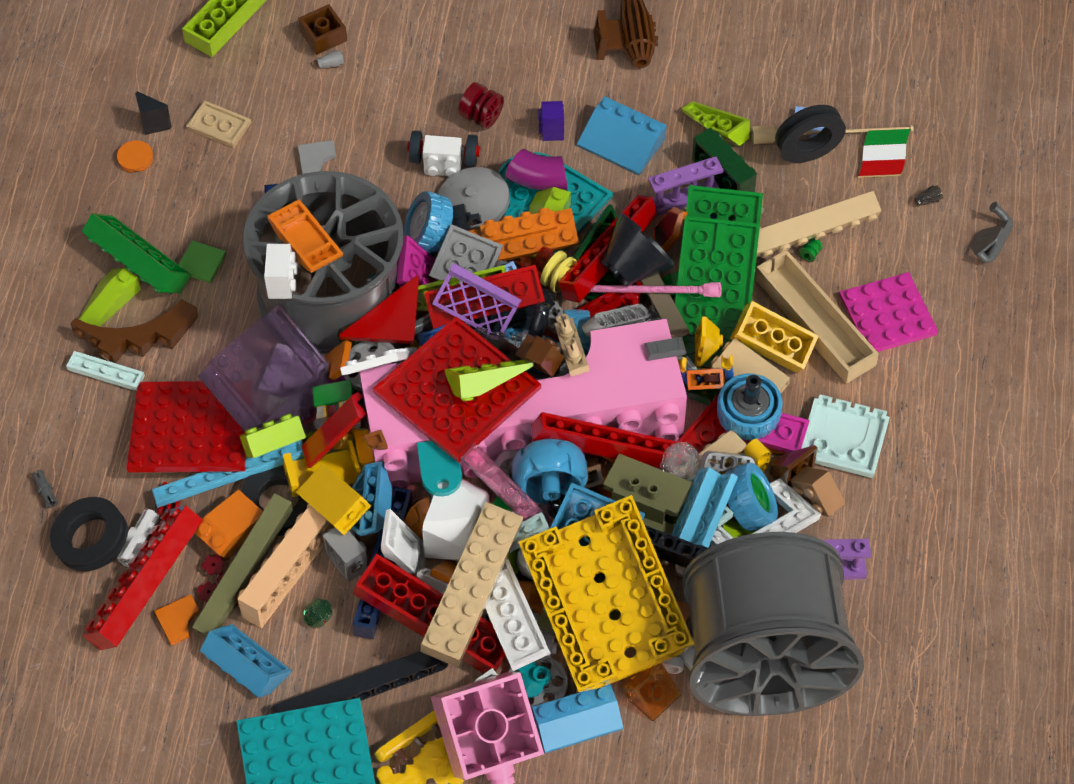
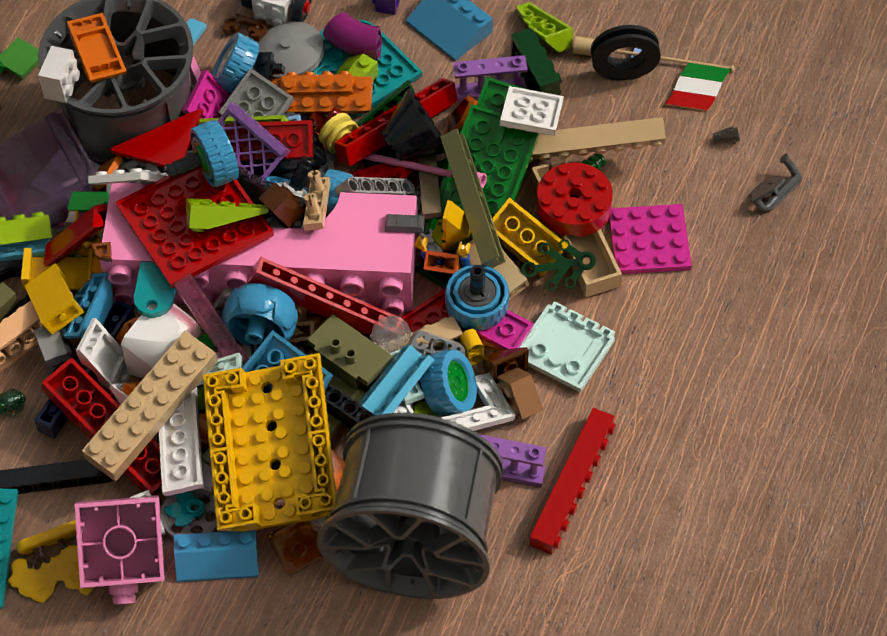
camera: 15 degrees right, 0 degrees up
(434, 184) = (256, 31): none -> reddish brown helmet
(460, 320) = (211, 154): none -> dark azure wheel
(686, 341) = (437, 234): none -> lime piece
(718, 310) = (473, 199): none -> olive tile
(747, 210) = (531, 111): none -> white plate
(811, 289) = (574, 199): none -> red brick
(820, 356) = (562, 264): none -> dark green plant
(895, 566) = (572, 480): none -> red brick

